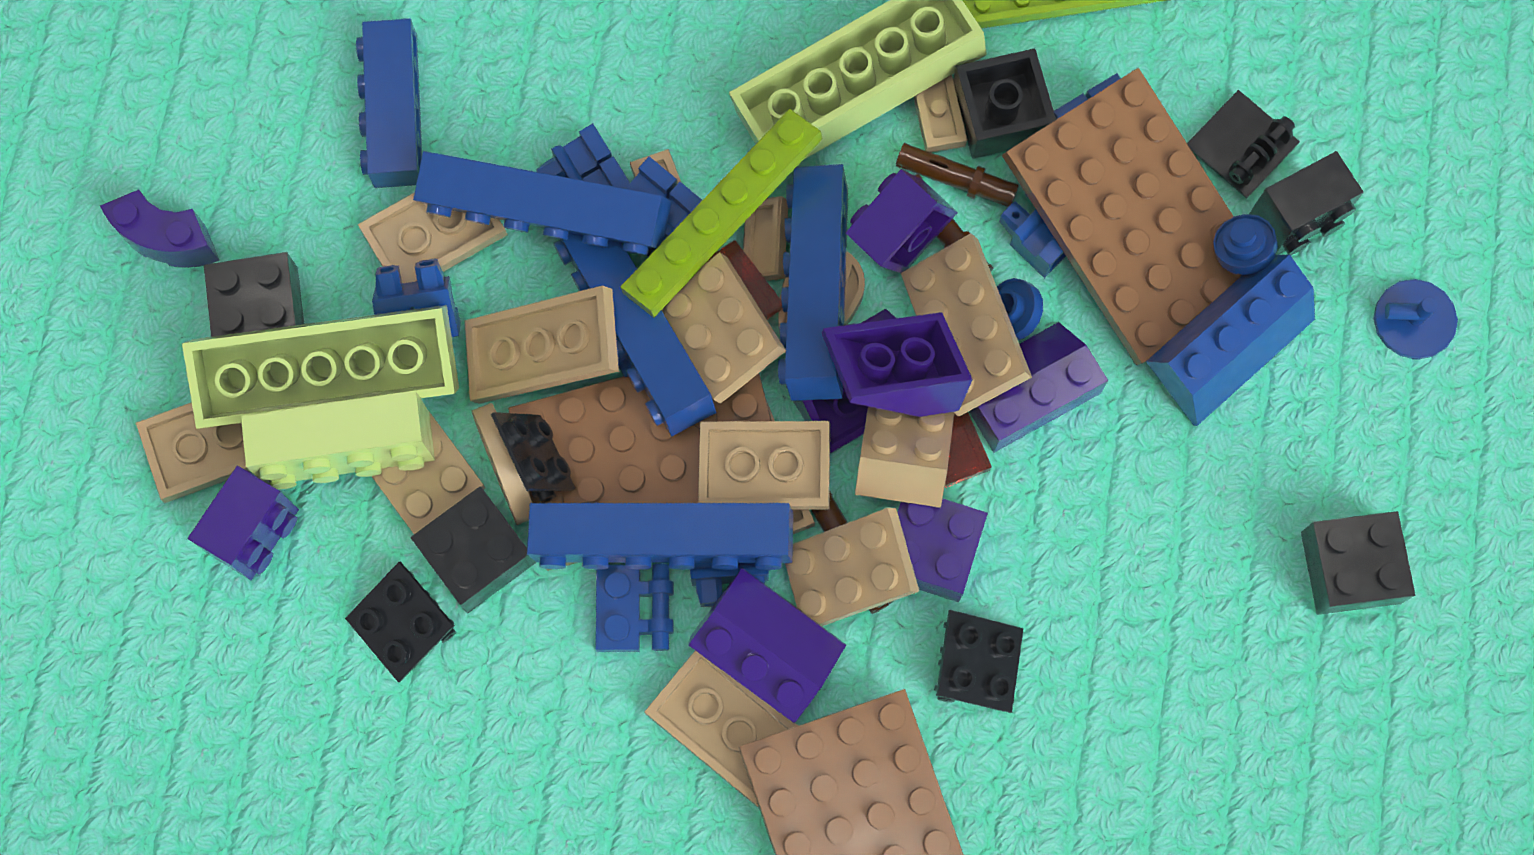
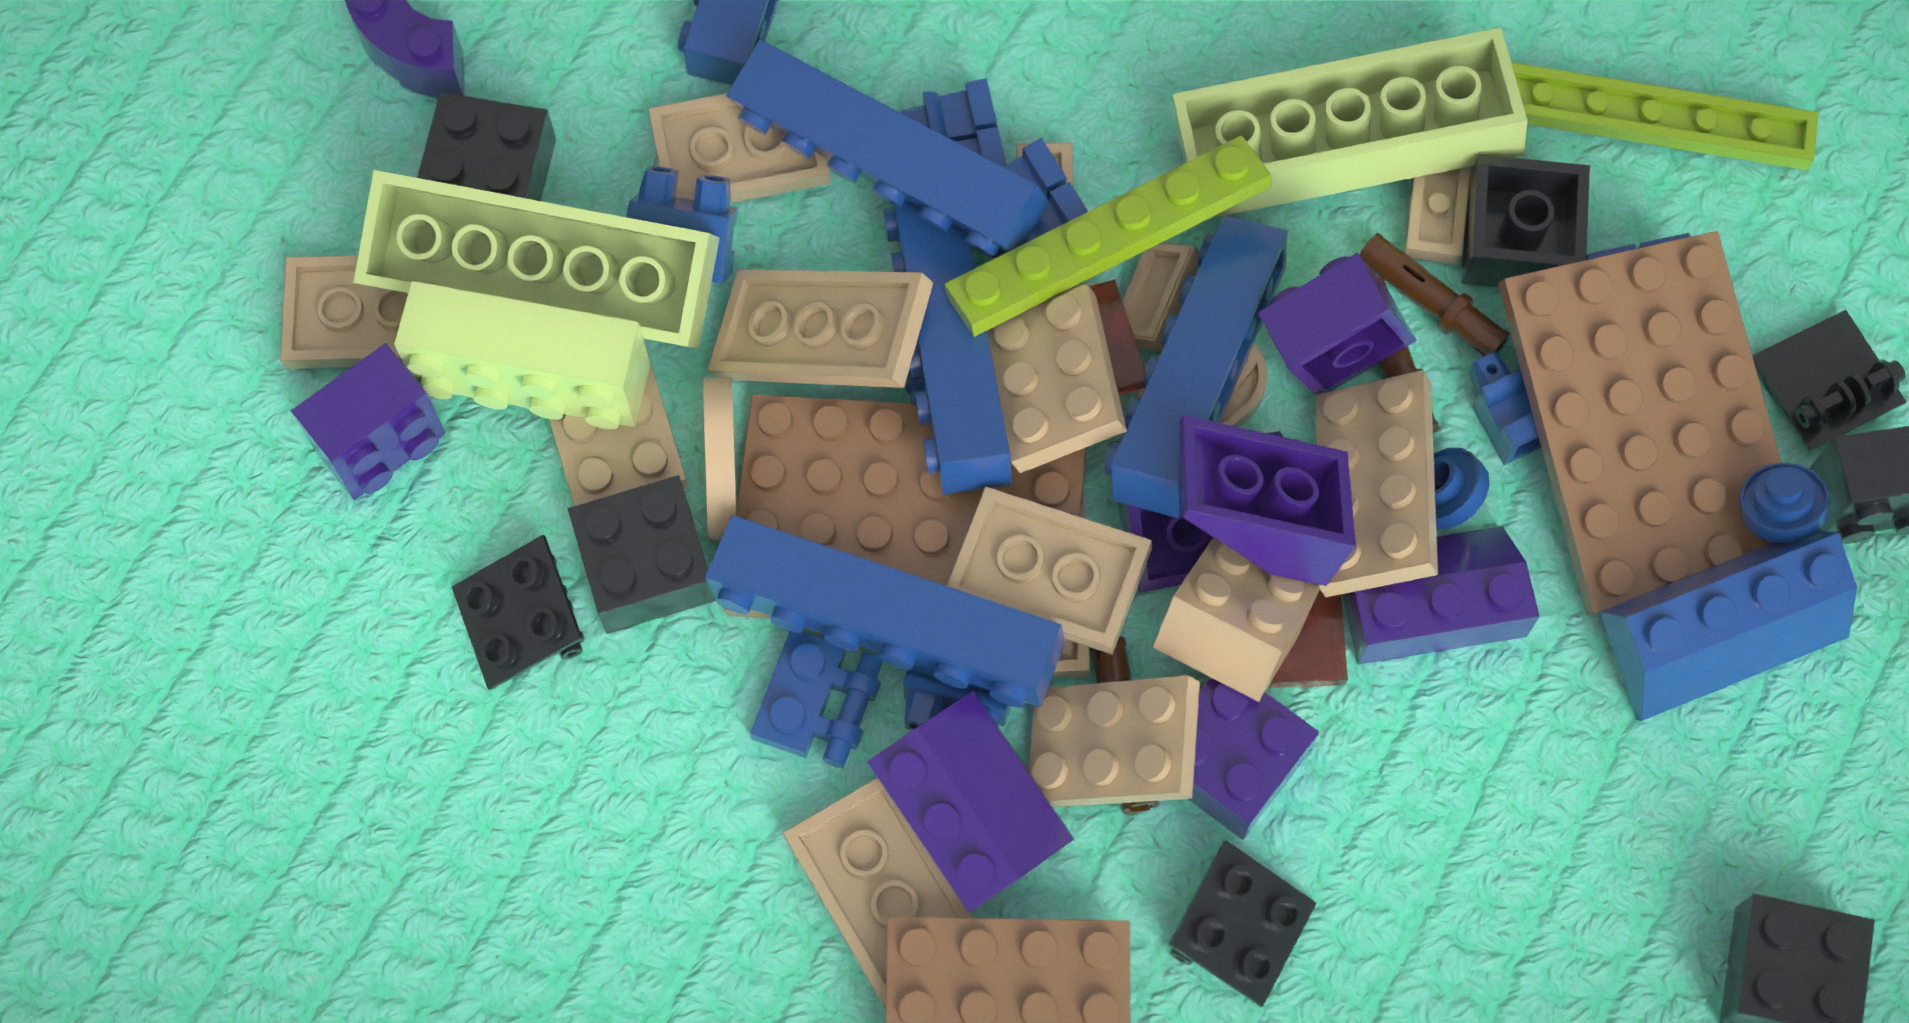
camera: 20 degrees right, 5 degrees down
(534, 454) = (760, 457): black hinge -> none

